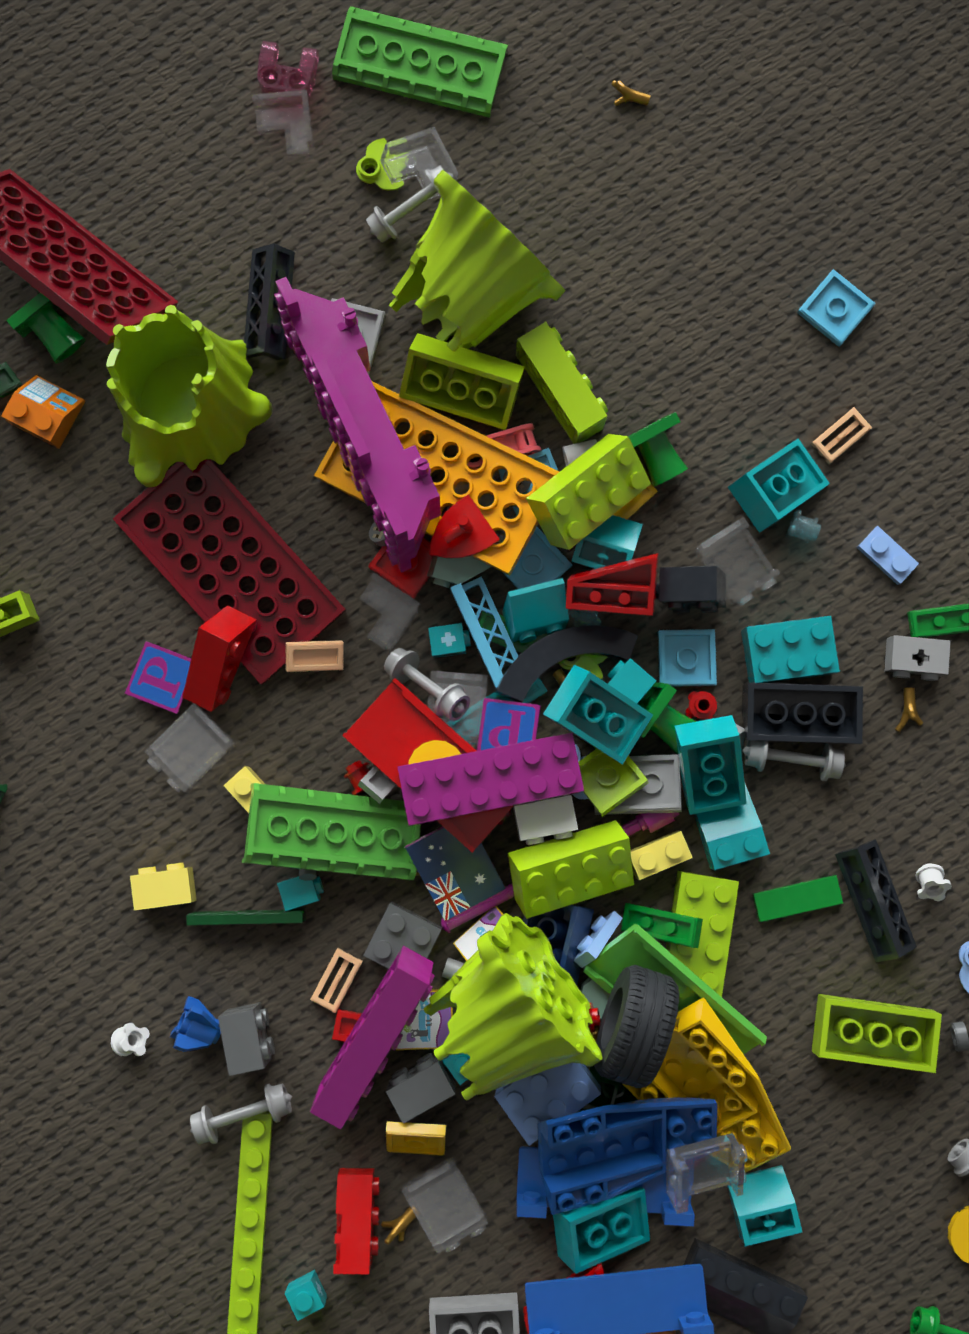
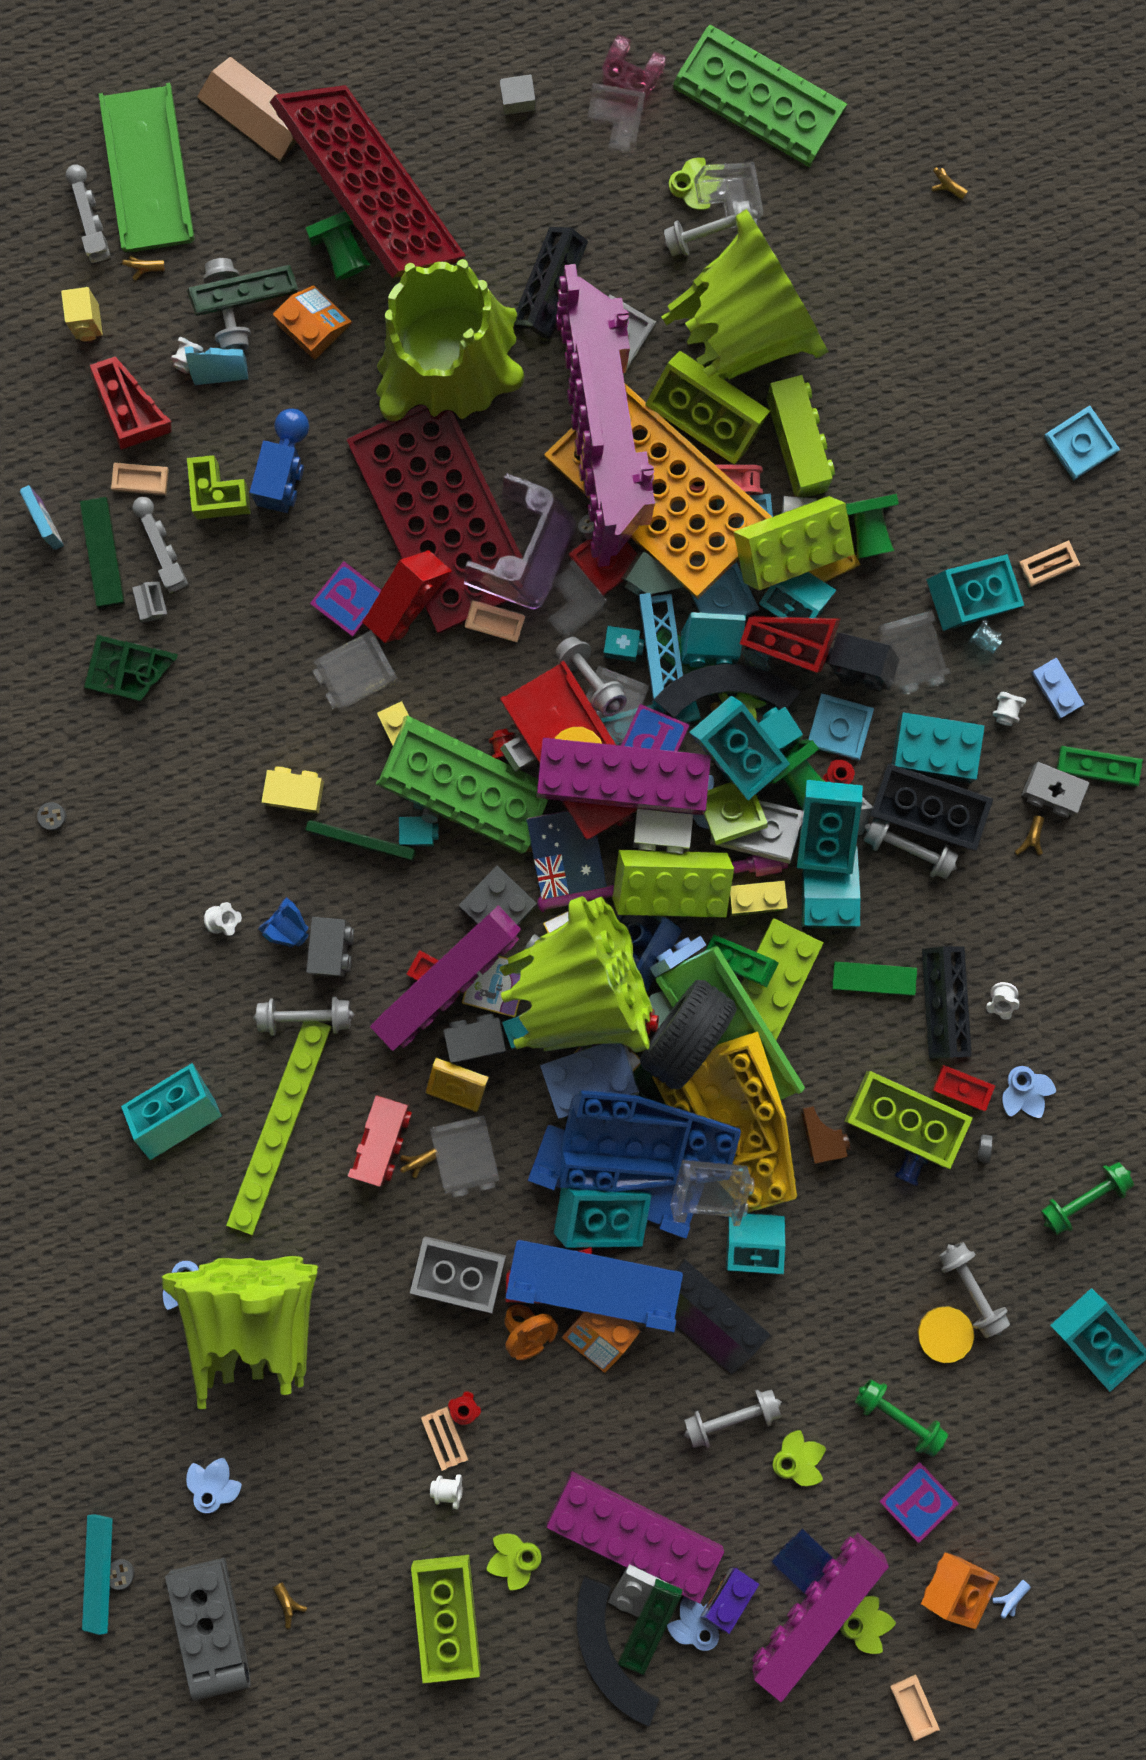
camera: 20 degrees right, 0 degrees up
(52, 566) = (280, 464): none -> blue brick
(134, 1253) = (170, 1111): none -> teal slope
(182, 128) = (518, 94): none -> light grey panel
(306, 1295) = (314, 1196): teal brick -> none
(339, 602) = (531, 578): none -> clear purple windscreen
(347, 958) = (409, 941): light nougat tile -> none
(462, 531) = (666, 546): red shield -> none
(800, 1079) = (823, 1141): none -> reddish brown arch
(847, 590) = (1008, 708): none -> white brick
(893, 1081) = (911, 1168): none -> clear blue bush
(919, 982) = (963, 1088): none -> red plate

